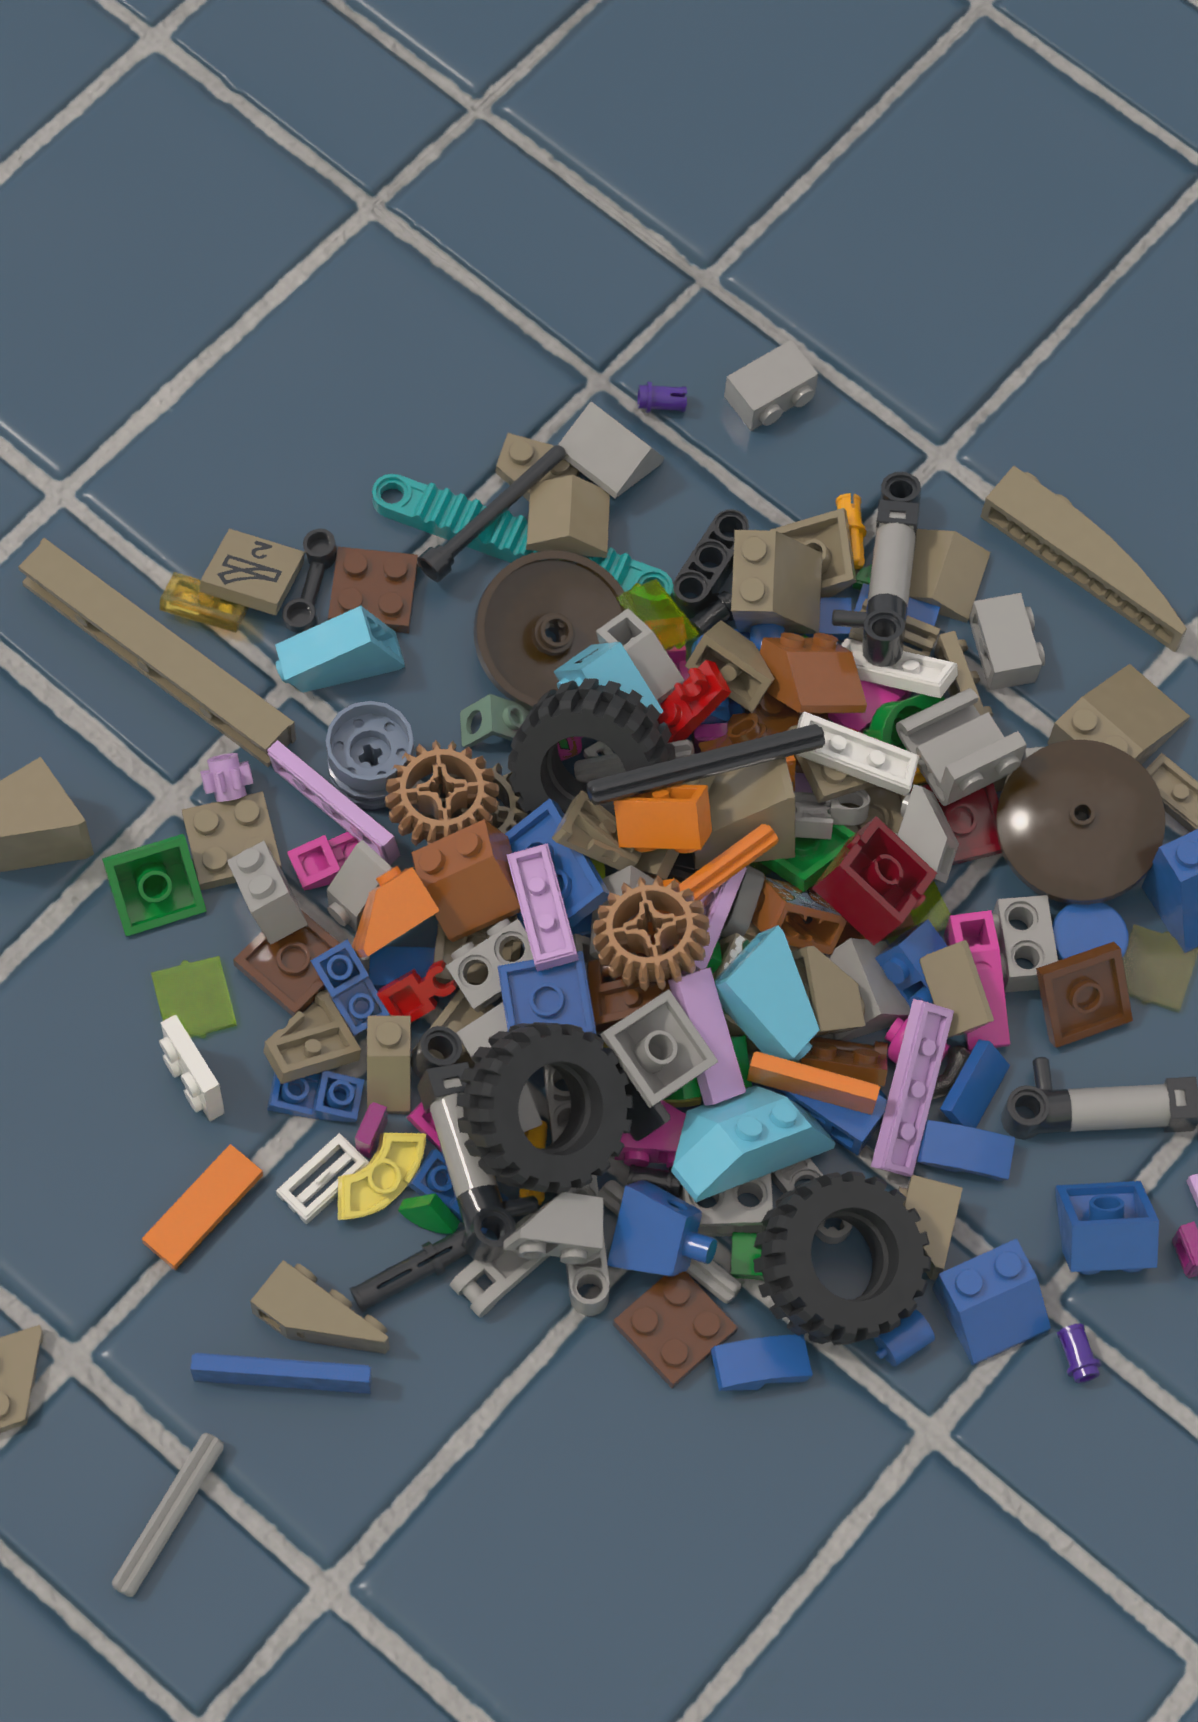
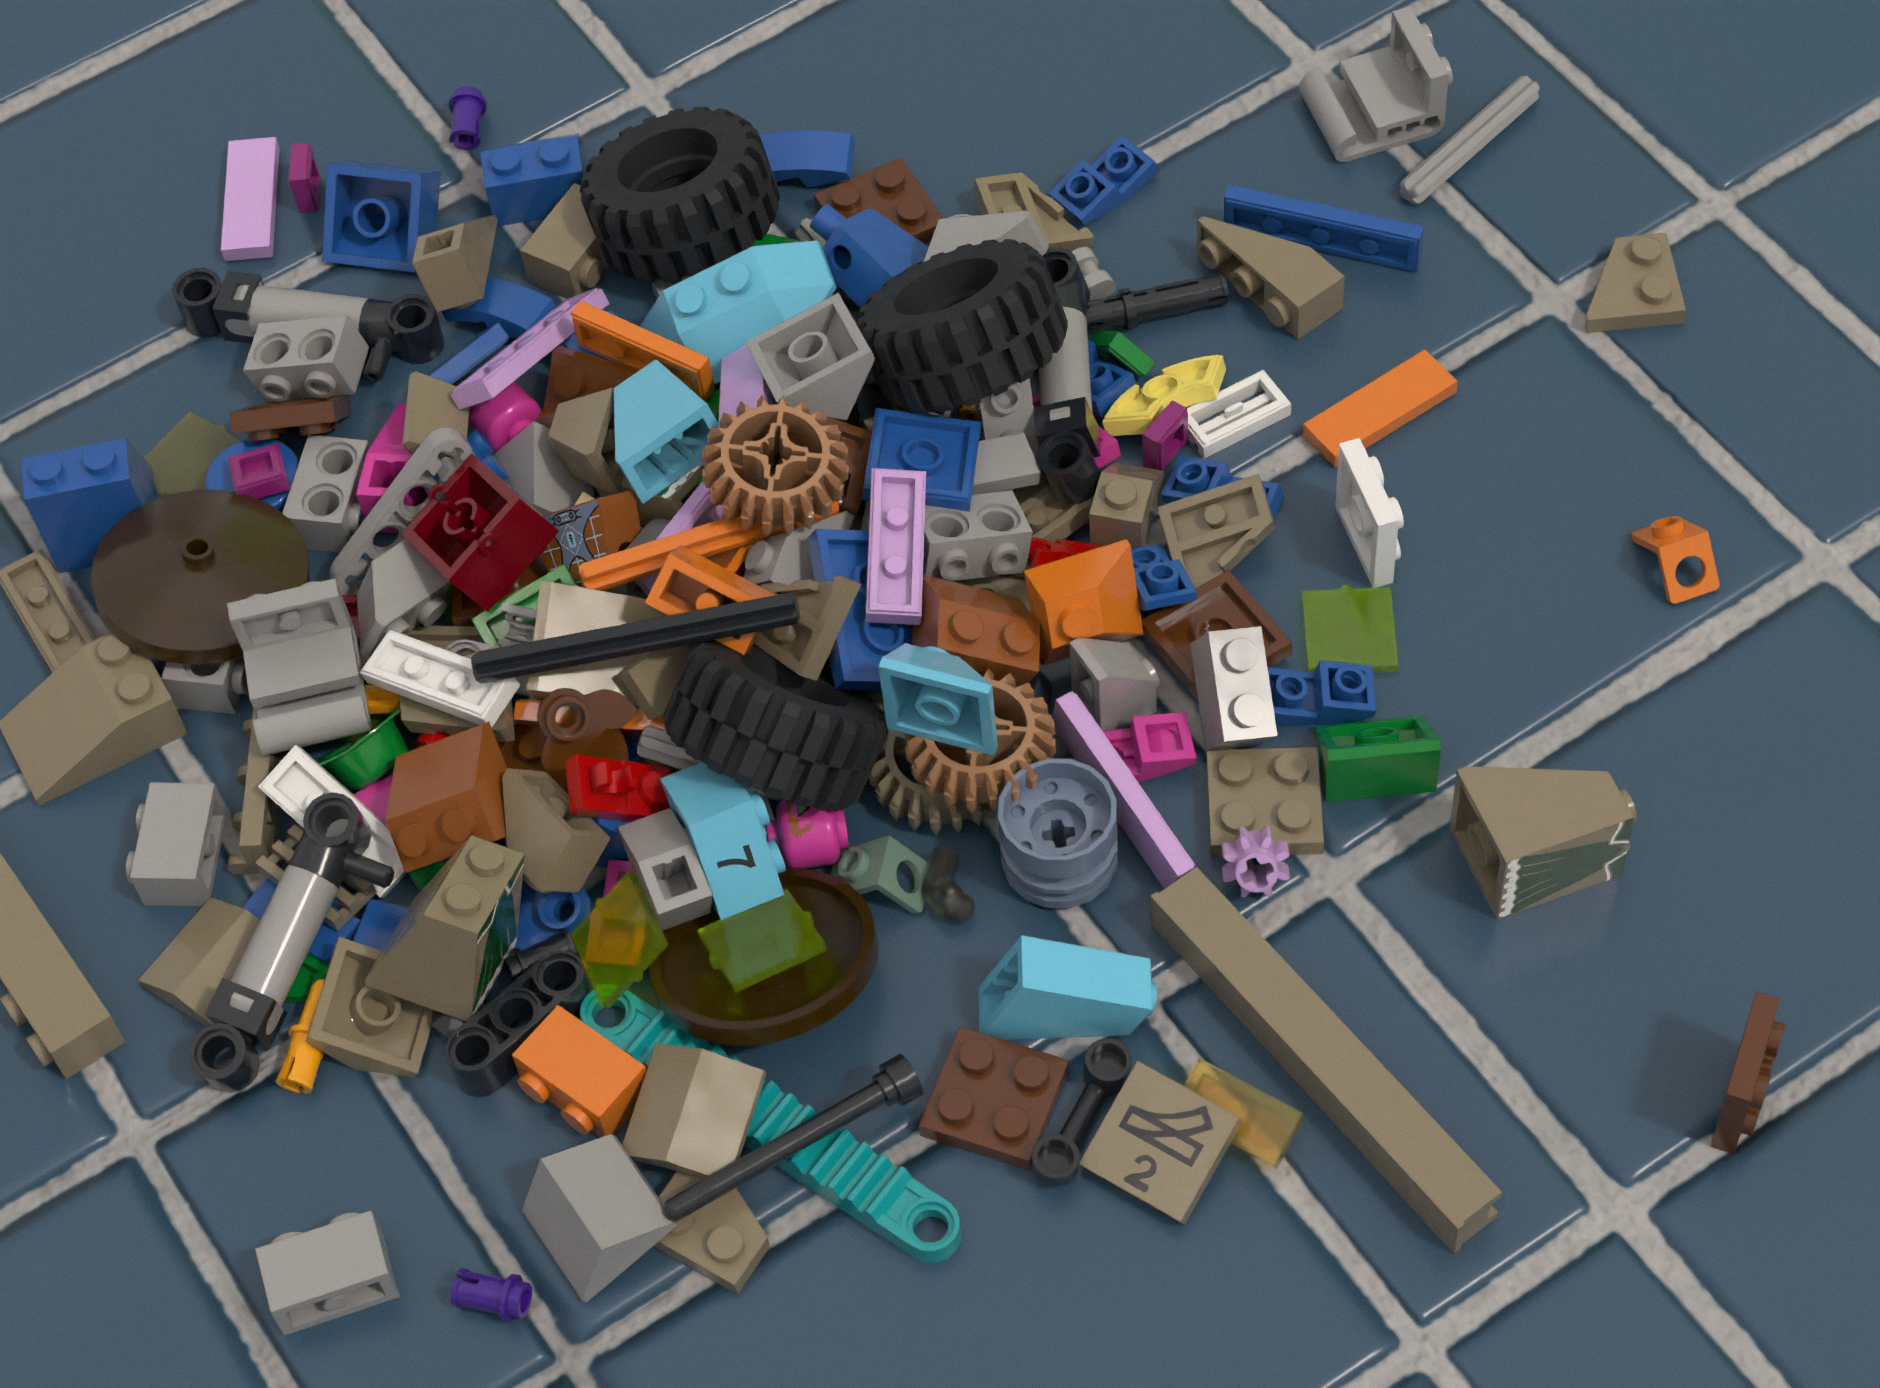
camera: 155 degrees left, 10 degrees down
(209, 934) = (1327, 696): none -> blue slope
(260, 1537) = (1385, 93): none -> light grey piece
(444, 716) = (940, 889): none -> clear smoke arm
(469, 770) = (938, 698): none -> medium azure slope
(486, 1400) = (1100, 187): none -> blue slope
(543, 1336) = (1019, 193): none -> dark tan wing
(556, 630) = (761, 941): none -> clear neon green piece
(654, 536) = (579, 1074): none -> orange brick
(947, 902) = (392, 511): none -> light grey beam
(1014, 1173) = (456, 262): none -> dark tan slope
(1081, 925) = (259, 472): none -> magenta tile
(1100, 1062) = (306, 358): none -> light grey brick

